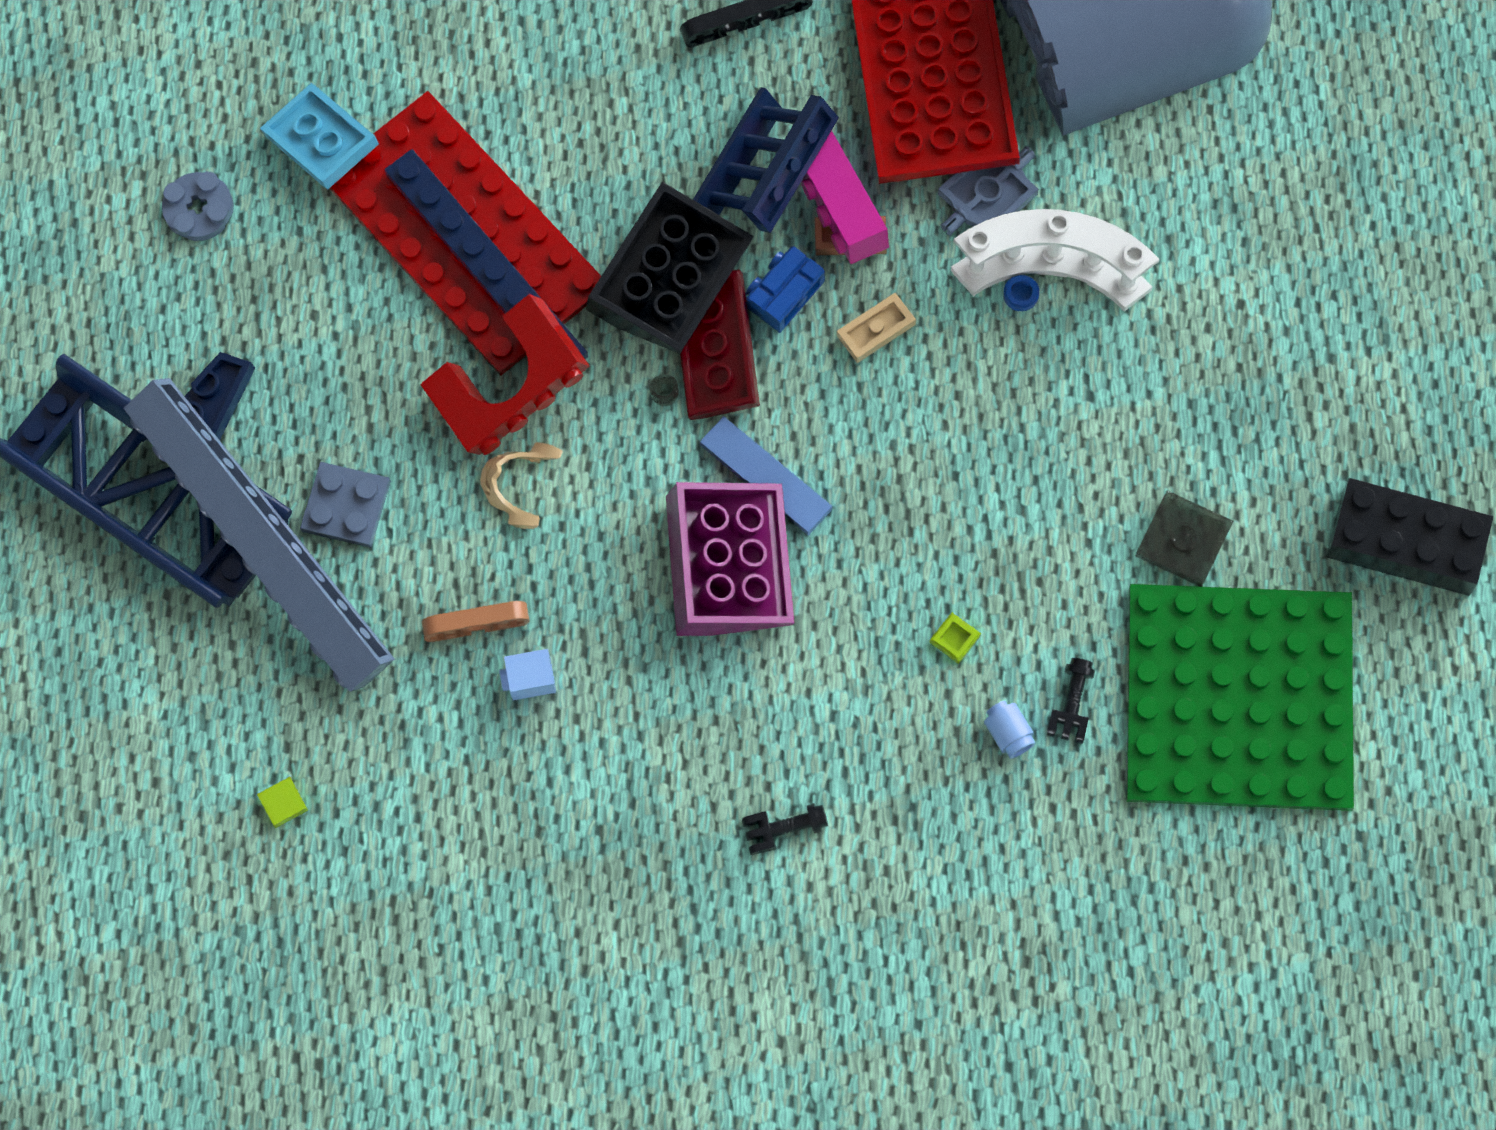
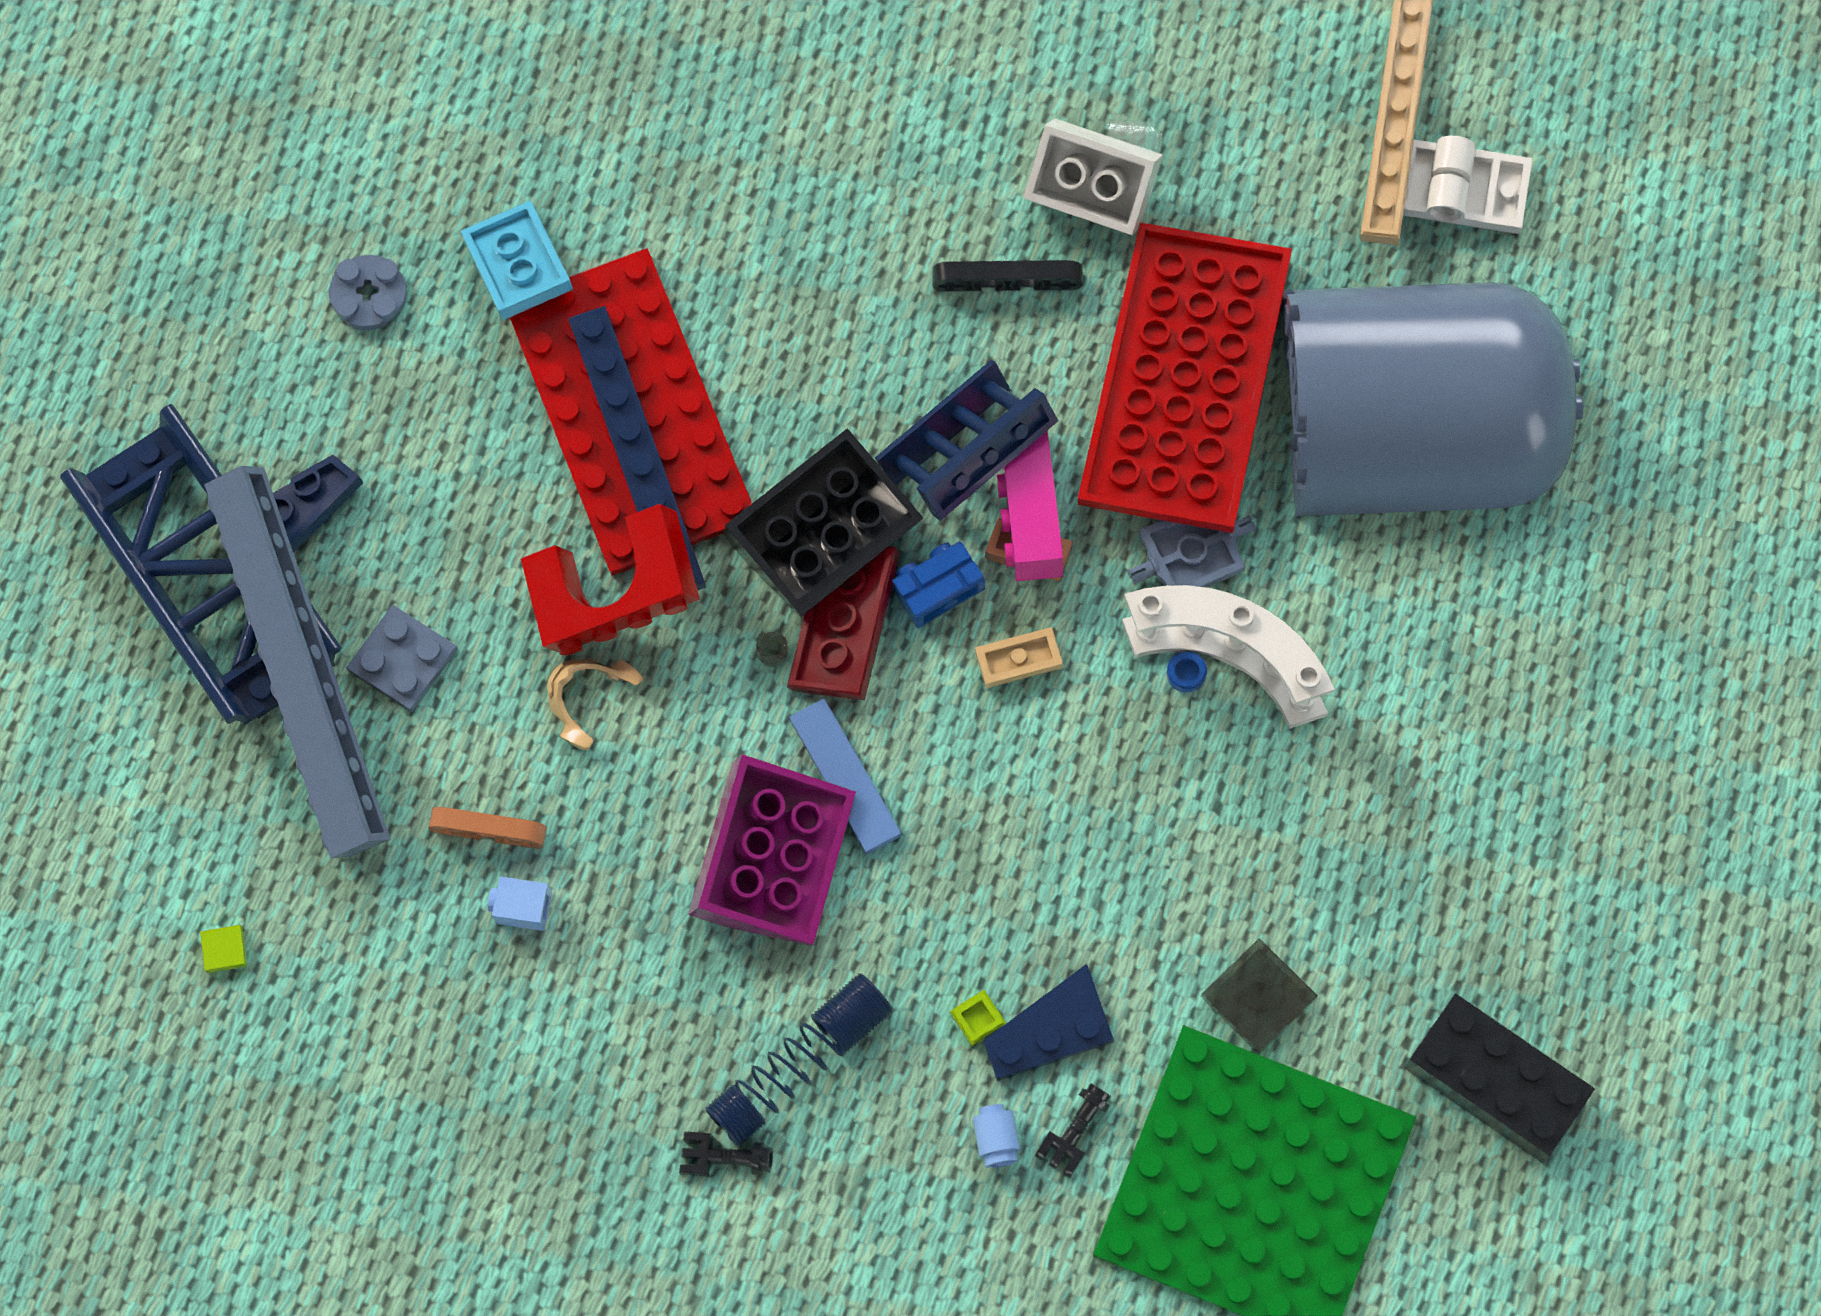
camera: 20 degrees right, 0 degrees up
(847, 671) = (845, 1017): none -> dark blue piece
(1021, 625) = (1051, 1029): none -> dark blue wing

